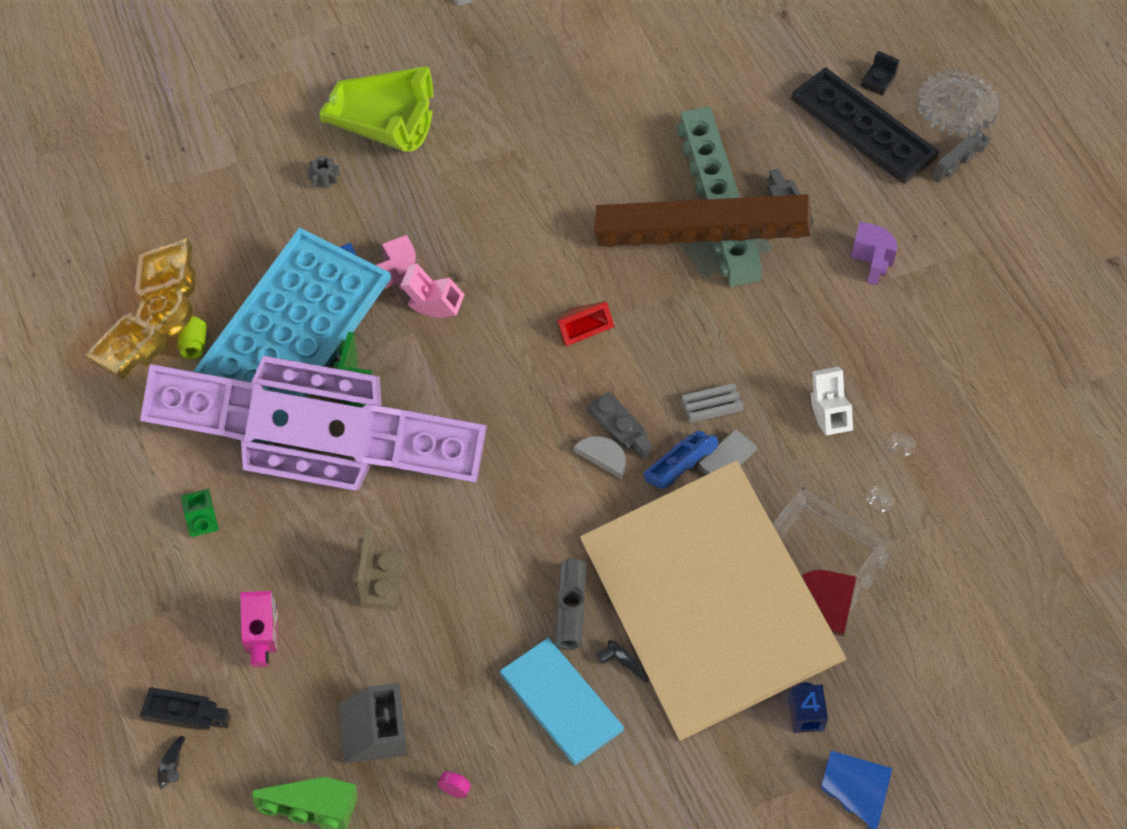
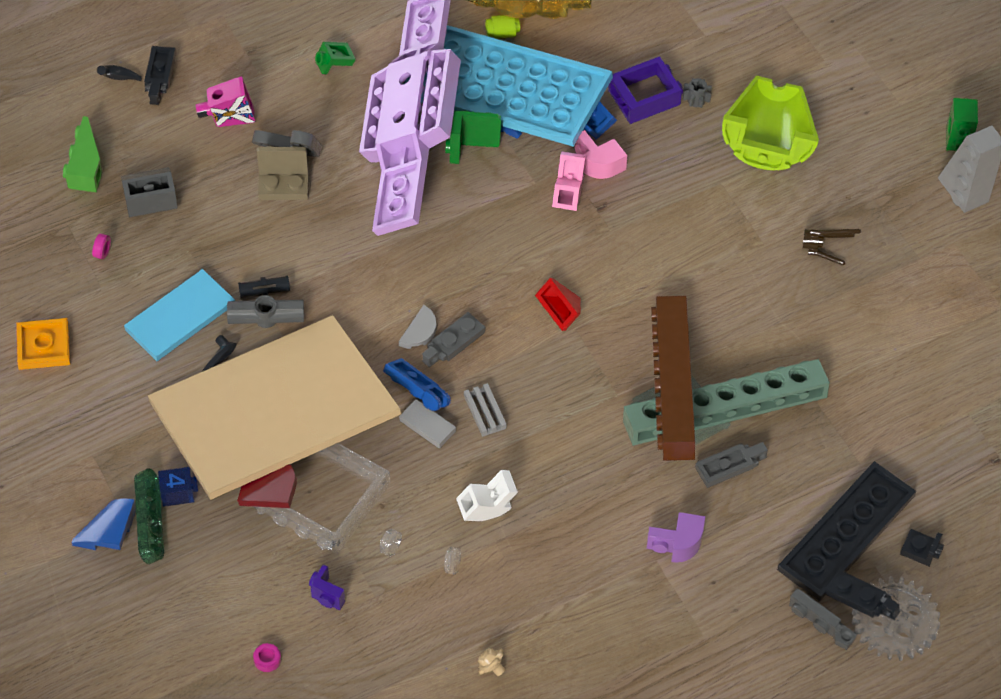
camera: 85 degrees right, 0 degrees up
(331, 230) = (634, 110): none -> dark purple window
(340, 543) = (298, 138): none -> dark grey beam
(526, 103) = (814, 239): none -> dark brown plant
(531, 606) = (246, 288): none -> black pin
(847, 739) = (149, 516): none -> clear green beam
(935, 570) = (325, 592): none -> dark purple bracket
(945, 116) = (862, 596): none -> black hinge
(1017, 629) = (267, 657): none -> dark pink tile
(1018, 420) = (490, 661): none -> tan plant

